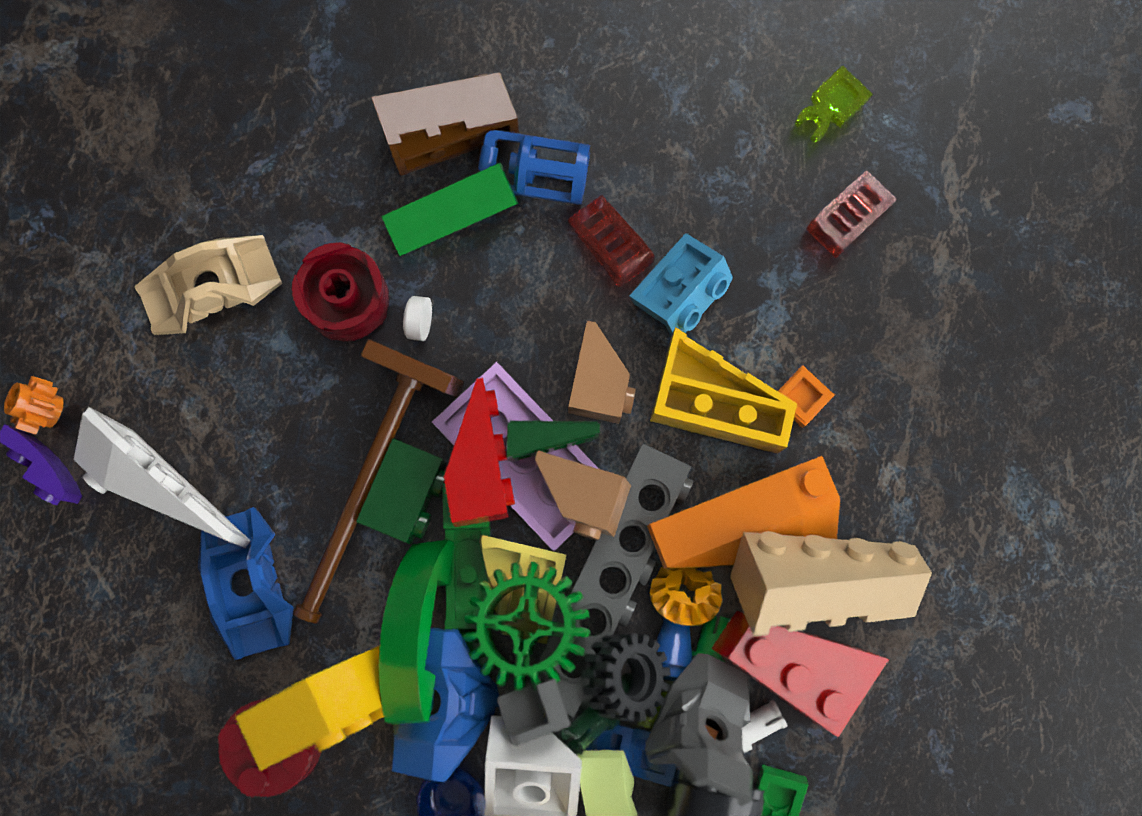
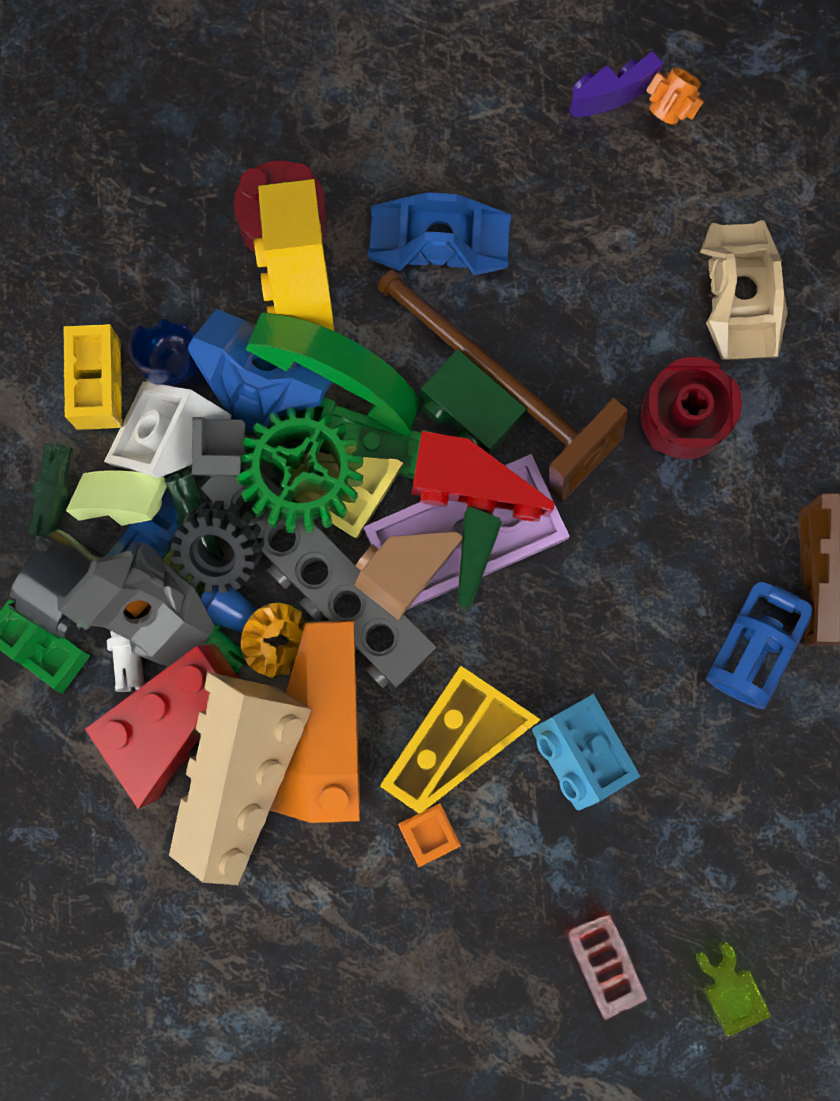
camera: 110 degrees right, 0 degrees up
(128, 466) = (578, 167): white wedge -> none
(417, 318) = (640, 476): white tile -> none
(450, 209) = (742, 544): green tile -> none
(600, 380) = (517, 632): medium nougat slope -> none
(631, 267) = (623, 708): clear red slope -> none

